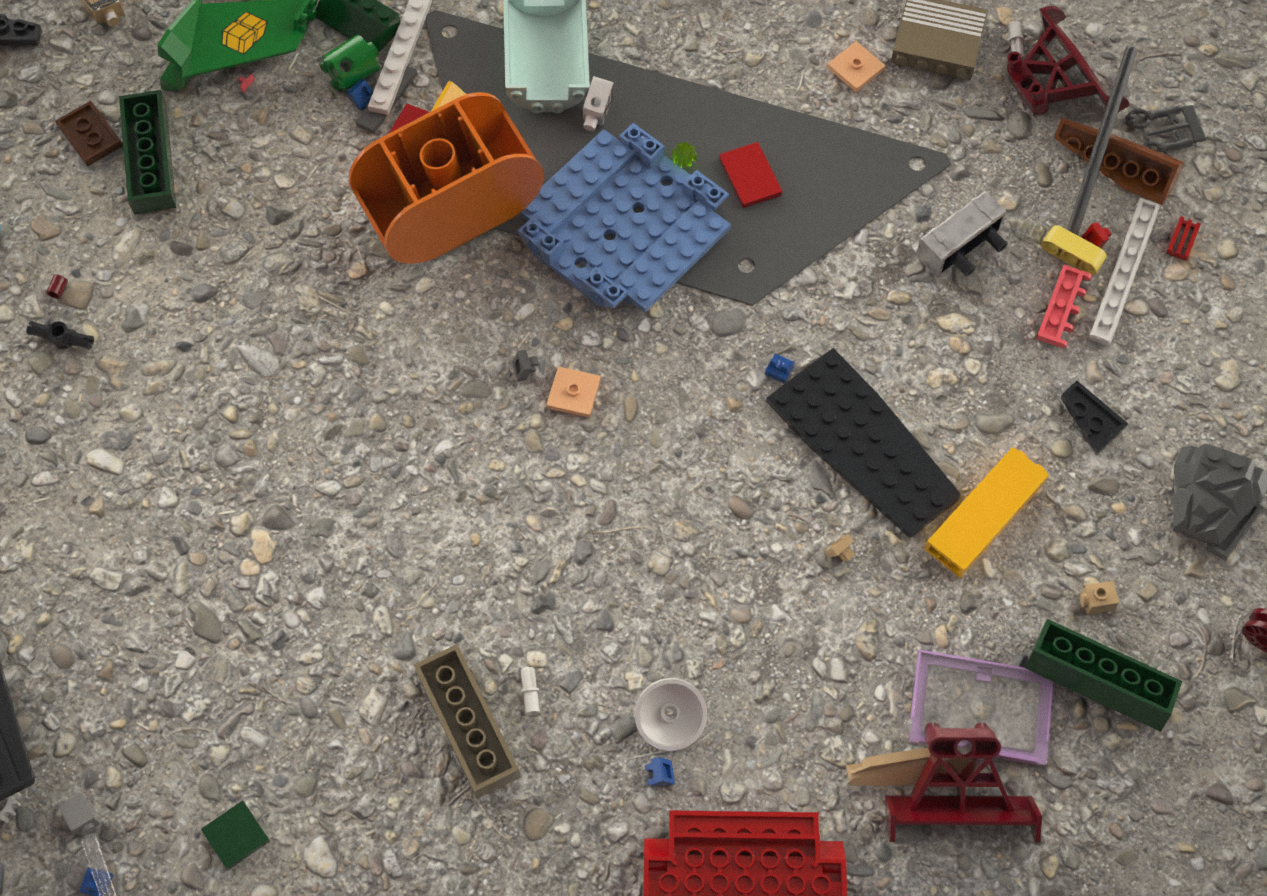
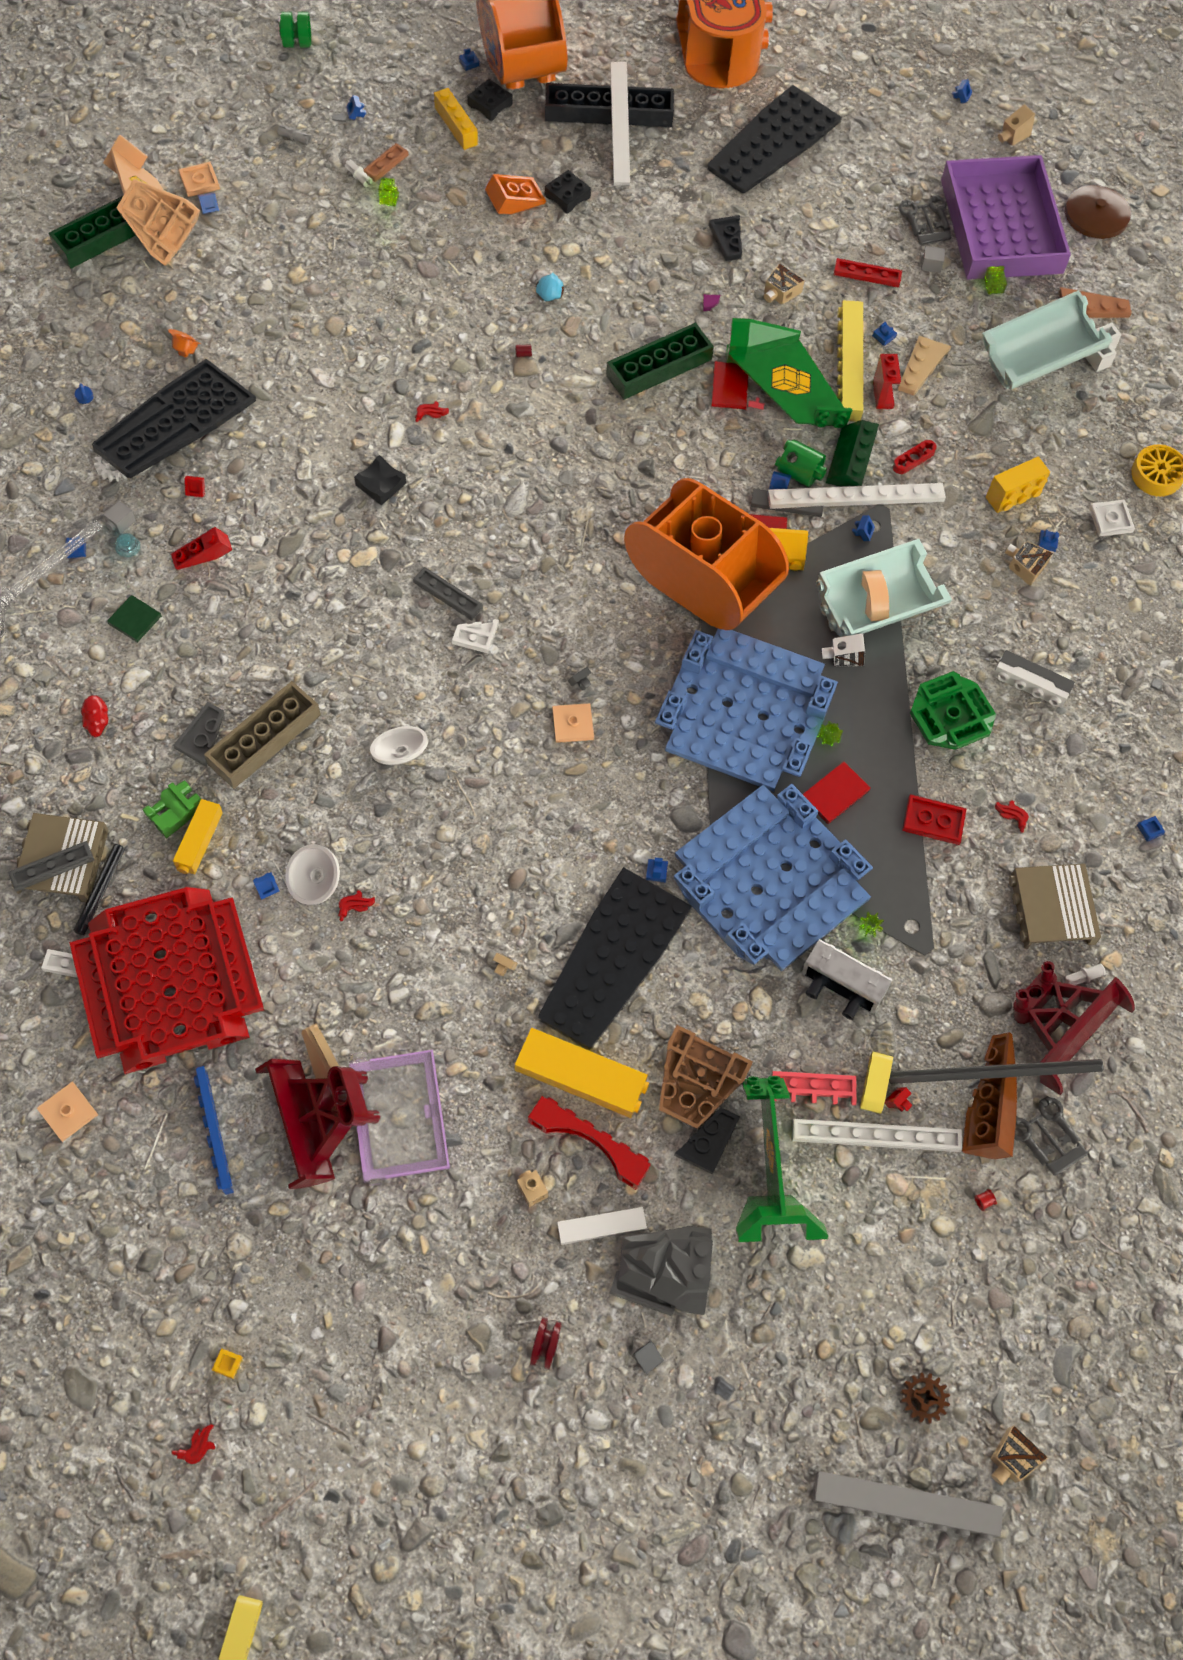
camera: 65 degrees right, 0 degrees up
(52, 331) = (483, 367): black pin -> none
(75, 710) = (194, 486): none -> red tile
(86, 79) = (710, 301): none -> magenta tile
(89, 133) = (663, 319): reddish brown tile -> none
(90, 411) = (432, 410): none -> red piece
(128, 821) = (127, 545): none -> clear light blue cone
(168, 494) = (380, 480): none -> black brick
(173, 727) = (203, 549): none -> red slope
(210, 99) = (729, 386): none -> red tile
(353, 468) = (448, 593): none -> dark grey tile
(425, 454) = (475, 635): none -> white wing
(434, 795) = (201, 733): none -> dark grey wing
(453, 37) = (864, 528): none -> blue tile
(521, 845) = (179, 808): none -> bright green hips
(530, 691) = (304, 772): white axle -> none
(531, 570) = (399, 745): none -> white dish
(554, 52) = (877, 595): none -> light nougat brick
(572, 833) = (197, 837): none -> yellow brick
(707, 38) = (957, 697): none -> green piece
(713, 683) = (354, 902): none -> red piece
(810, 101) = (934, 819): none -> red tile
(825, 34) = (1013, 812): none -> red piece
(856, 66) = (989, 846): light nougat plate -> none
(862, 251) = (747, 852): none -> medium blue slope
(908, 194) = (874, 920): none -> clear neon green gear
(1029, 401) = (698, 1077): none -> medium nougat wedge
(1099, 501) = (553, 1119): none -> red arch
(1104, 675) = (455, 1205): dark green brick -> none
(1153, 546) = (601, 1225): none -> white tile
(1185, 375) = (775, 1207): none -> green piece
(1188, 225) = (935, 1172): red tile -> none
(1214, 203) = (985, 1199): none -> red axle

